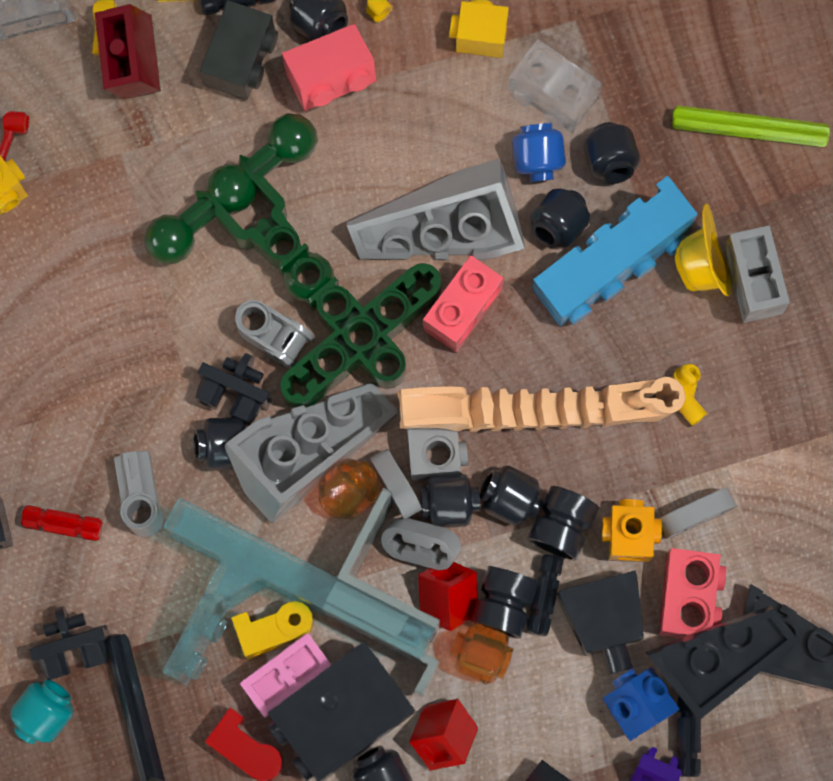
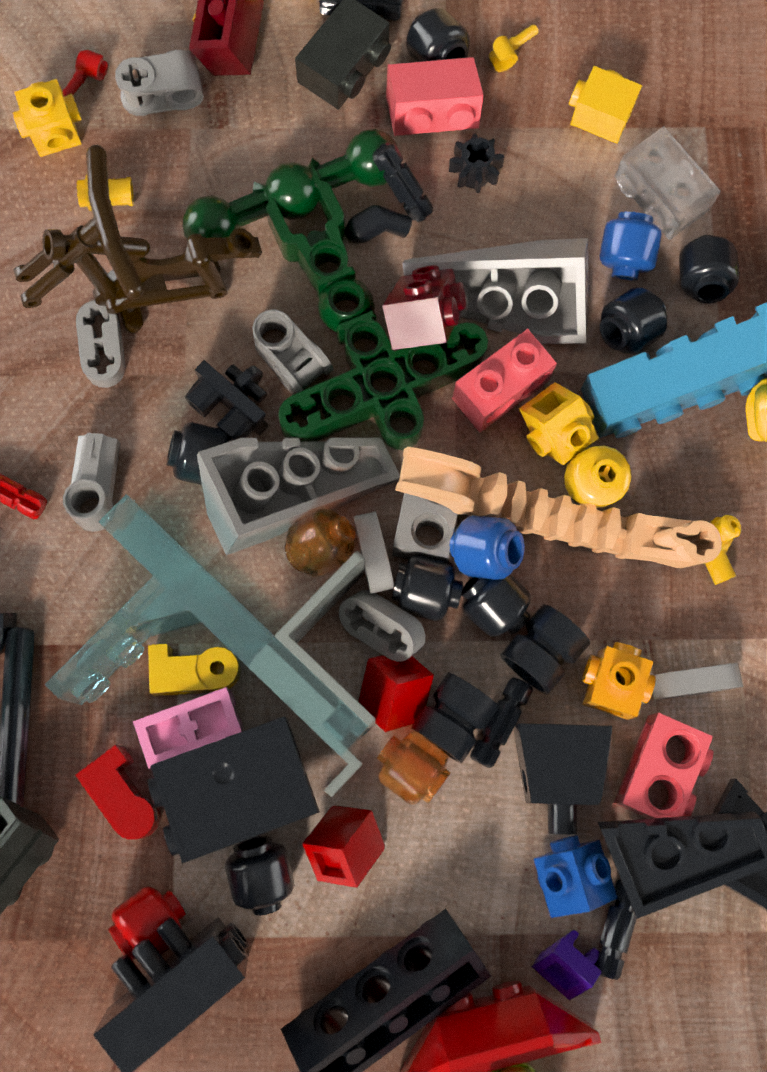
camera: 10 degrees right, 0 degrees up
(66, 235) = (120, 192): none -> yellow pin
(88, 121) = (163, 81): none -> light grey piece
(96, 375) = (90, 345): none -> light grey beam
(119, 303) = (134, 278): none -> dark brown piece
(311, 193) = (375, 221): none -> black arm
(325, 154) = (402, 182): none -> black axle
(377, 262) = (423, 307): none -> brick
(378, 107) = (476, 163): none -> black gear
(490, 452) = (487, 547): none -> blue head
(521, 328) = (559, 423): none -> yellow brick
(554, 369) = (587, 468): none -> yellow head

